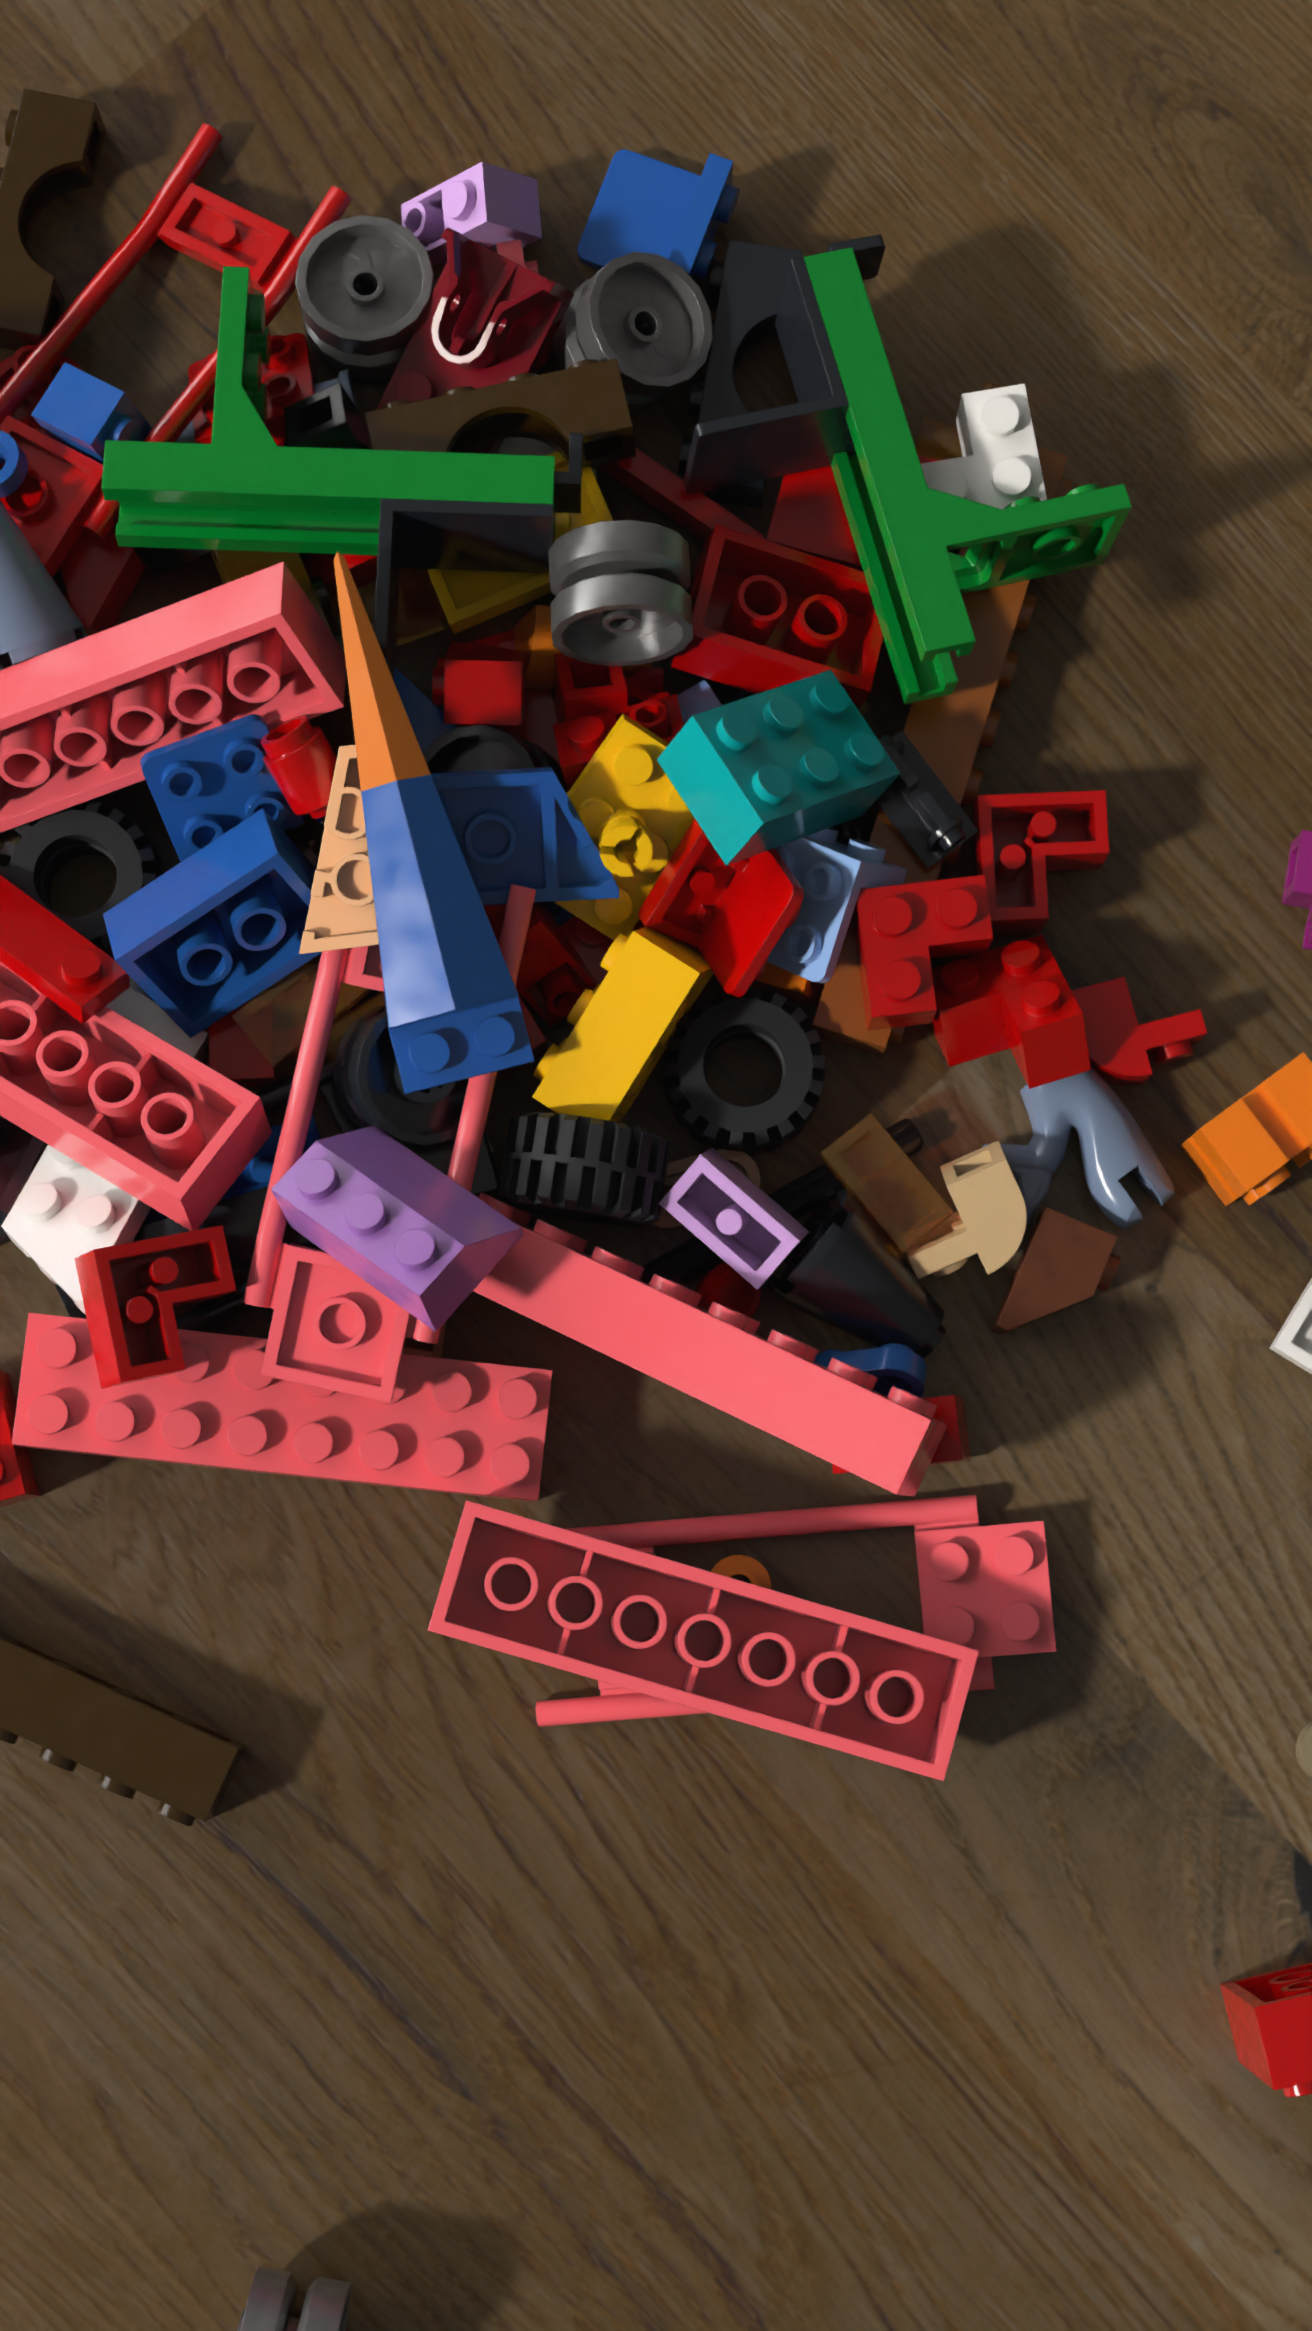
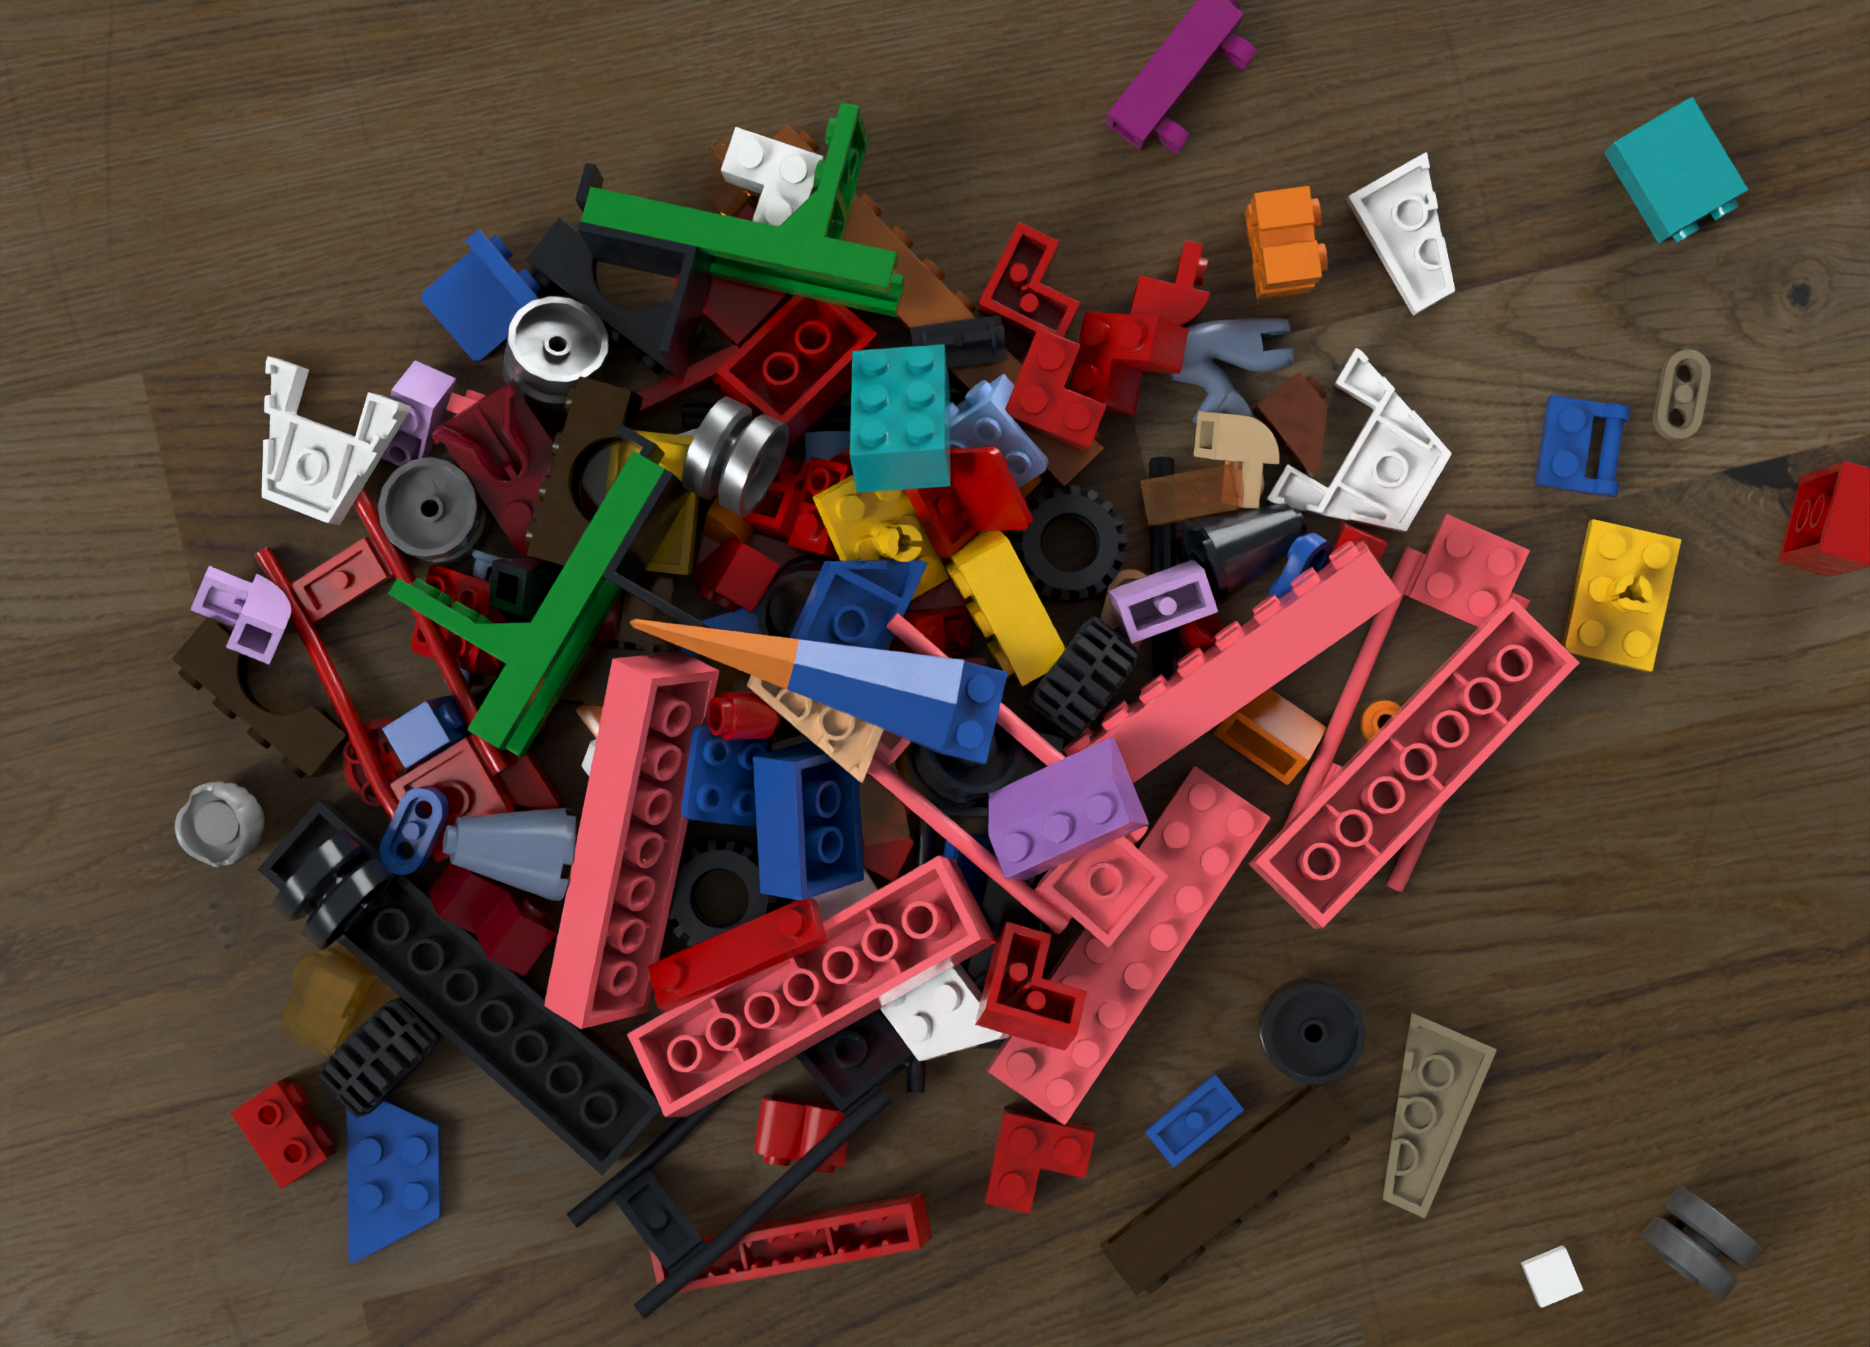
camera: 60 degrees left, 5 degrees up
(111, 1615) = (1193, 1120): none -> blue plate
(131, 151) = (254, 610): none -> lavender brick
(150, 2184) = (1551, 1276): none -> white tile
(266, 1724) = (1283, 1028): none -> black wheel
(290, 1910) = (1433, 1104): none -> dark tan wing
(347, 132) = (313, 464): none -> white wing
(649, 1449) = (1272, 735): none -> orange brick
(1058, 1415) = (1386, 467): none -> white wing
(1065, 1802) = (1620, 595): none -> yellow plate
(1216, 1630) = (1567, 441): none -> blue plate

